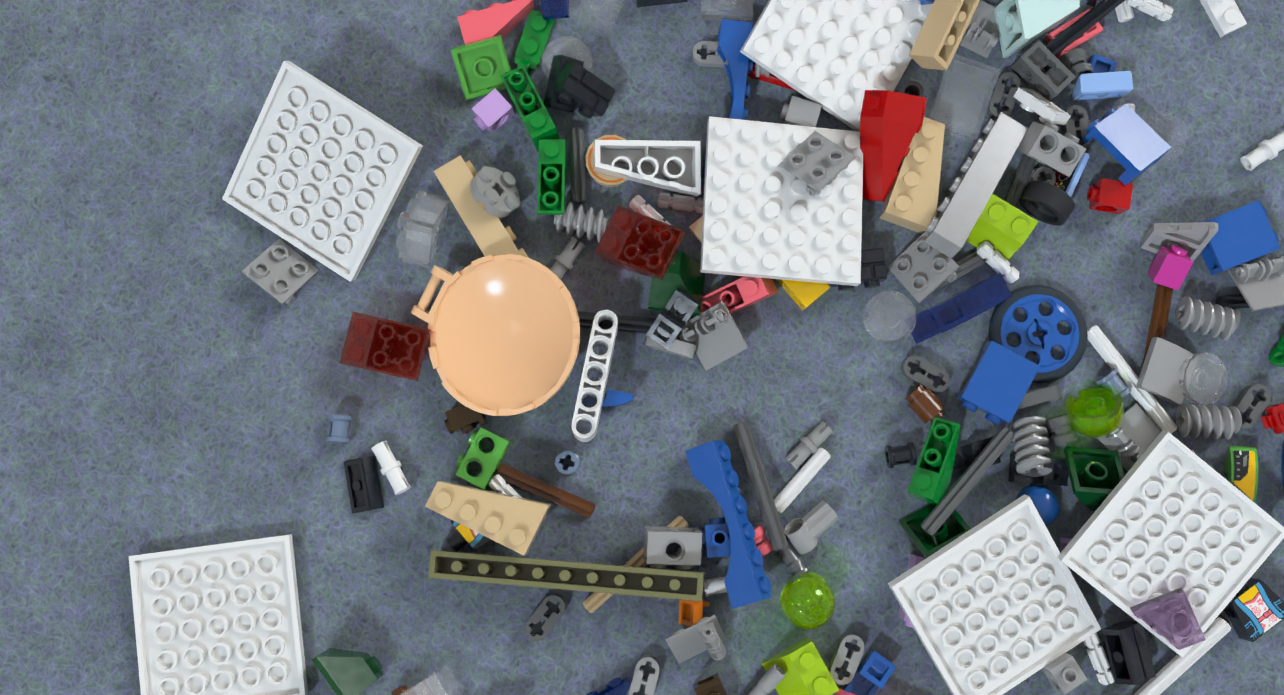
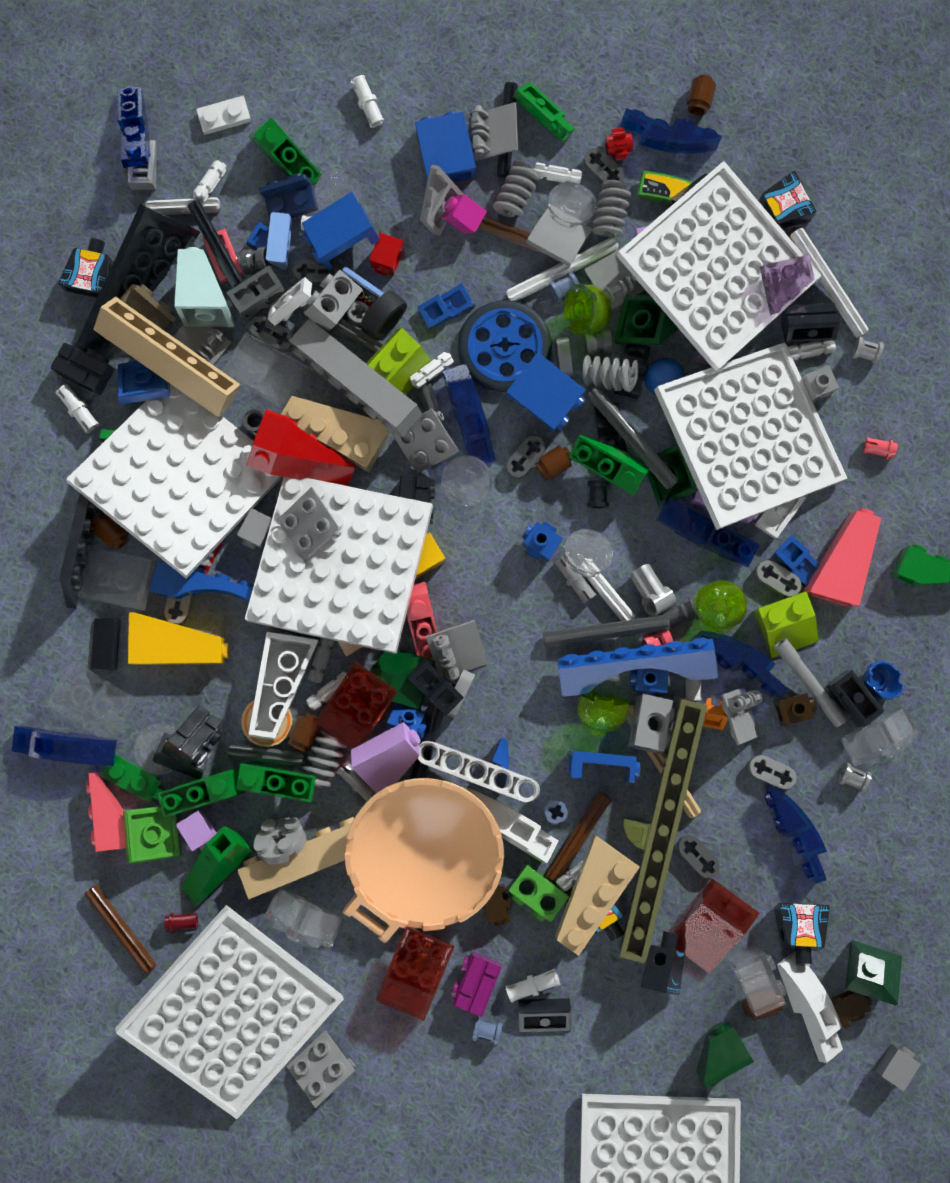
camera: 80 degrees left, 0 degrees up
(384, 410) = (476, 984): none -> magenta brick
(387, 56) = (120, 929): none -> reddish brown axle
(402, 113) = (181, 922): none -> dark red pin
(428, 598) = (661, 975): none -> black torso
(464, 134) = (216, 861): none -> green slope
(476, 643) = (714, 926): none -> clear red slope
(544, 427) = (520, 830): none -> white slope
(560, 549) = (636, 832): none -> yellowish green tile
(594, 280) = (386, 756): none -> lavender slope
(606, 197) = (304, 732): none -> reddish brown brick
(626, 476) = (576, 760): none -> blue panel
(629, 296) = (410, 716): none -> blue brick
(671, 50) = (166, 643): none -> yellow slope
(675, 494) = (601, 712): none -> clear neon green cylinder
(752, 647) = (733, 653): none -> clear blue slope
(832, 407) = (542, 550): none -> blue brick
(837, 453) = (587, 553): none -> clear tile
(881, 569) = (702, 532): none -> clear blue slope
(909, 646) = (776, 519): none -> white plate
(1067, 268) = (446, 307): none -> blue slope
(1152, 88) = (290, 196): none -> dark blue bracket
(1194, 75) = (282, 150): none -> green slope
(1233, 359) = (558, 173): none -> white axle

